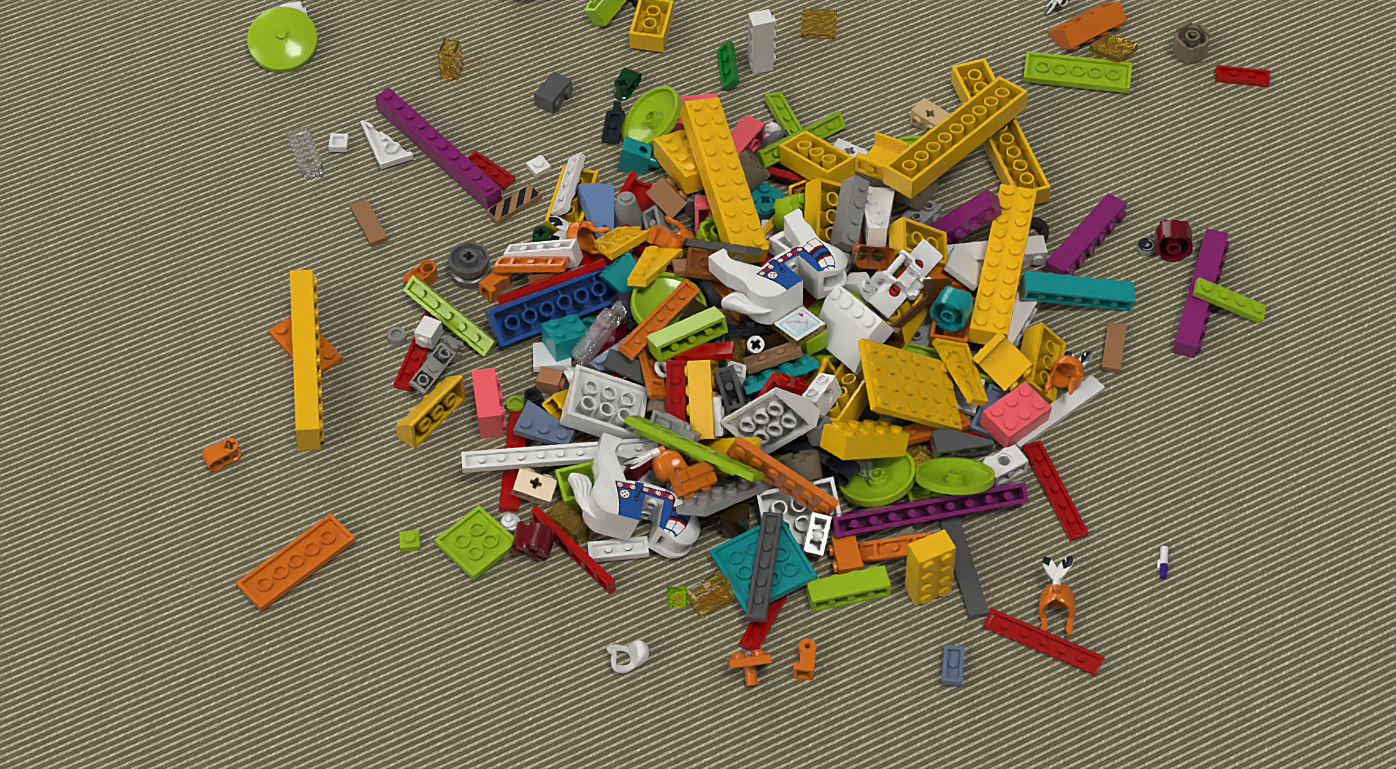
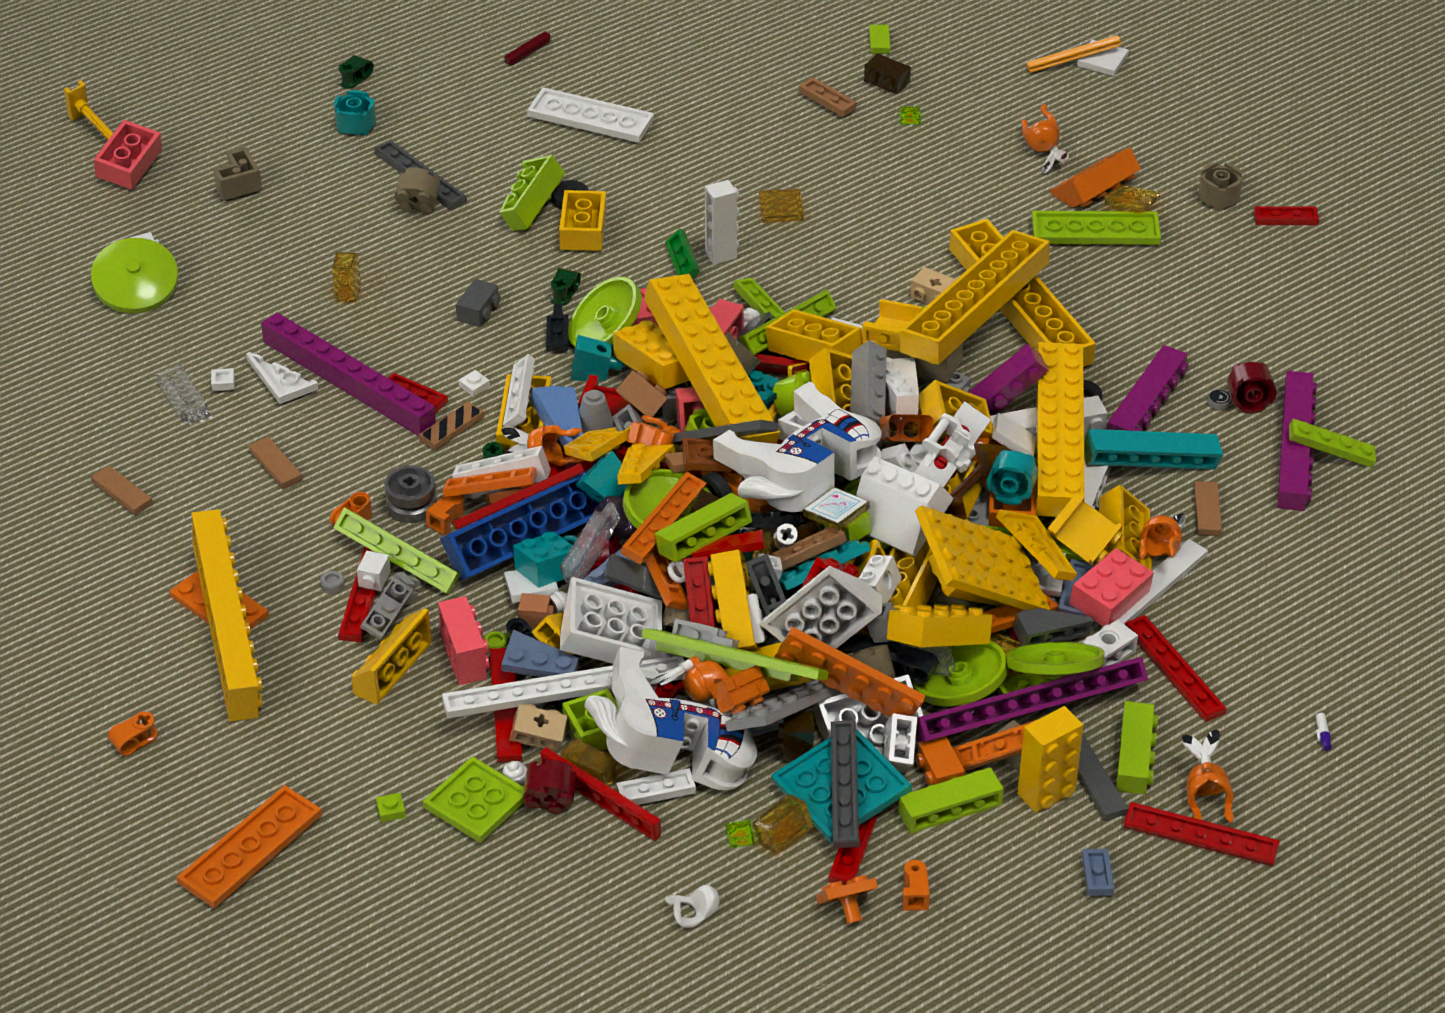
camera: 10 degrees left, 10 degrees down
(245, 235) = (121, 490): none -> medium nougat tile
(1006, 559) = (1135, 748): none -> lime brick

